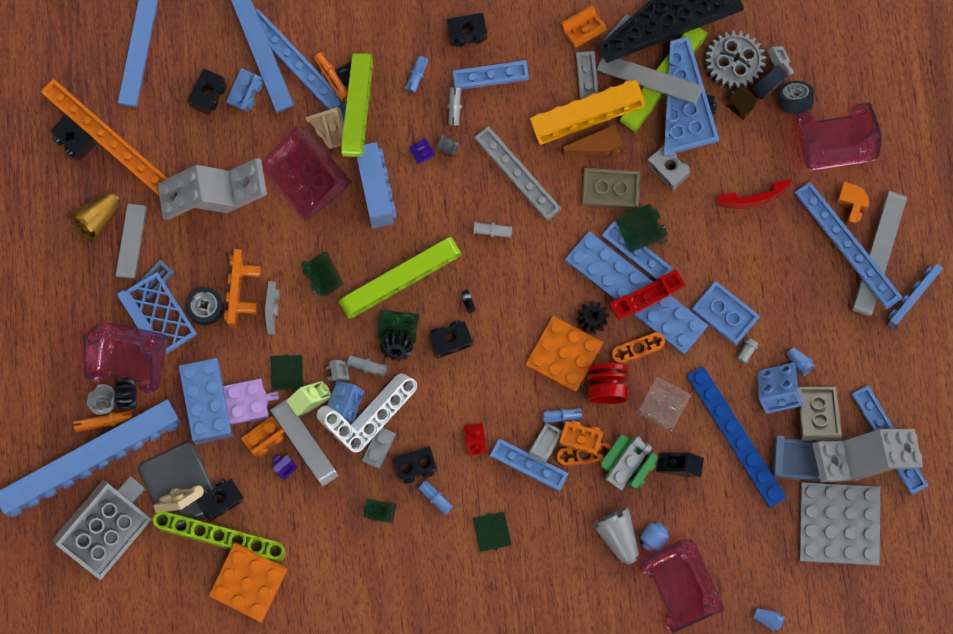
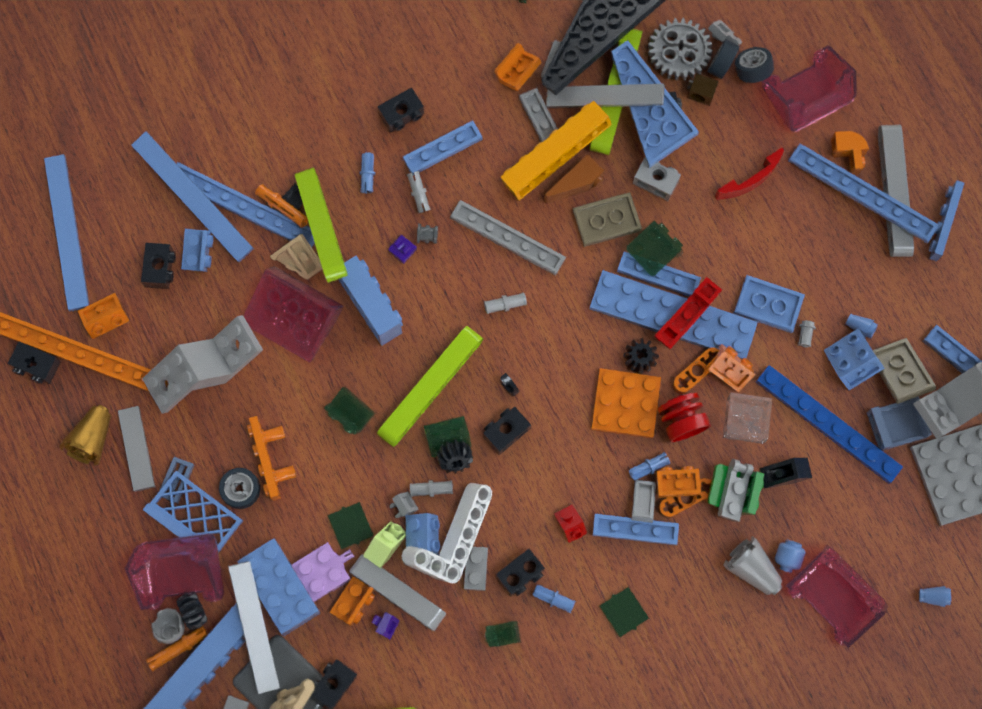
camera: 25 degrees left, 0 degrees up
(145, 118) = (103, 316): none -> orange bracket
(171, 426) = (253, 627): none -> tile
(271, 307) = (311, 465): light grey wing -> none
(668, 356) = (731, 368): none -> orange bracket

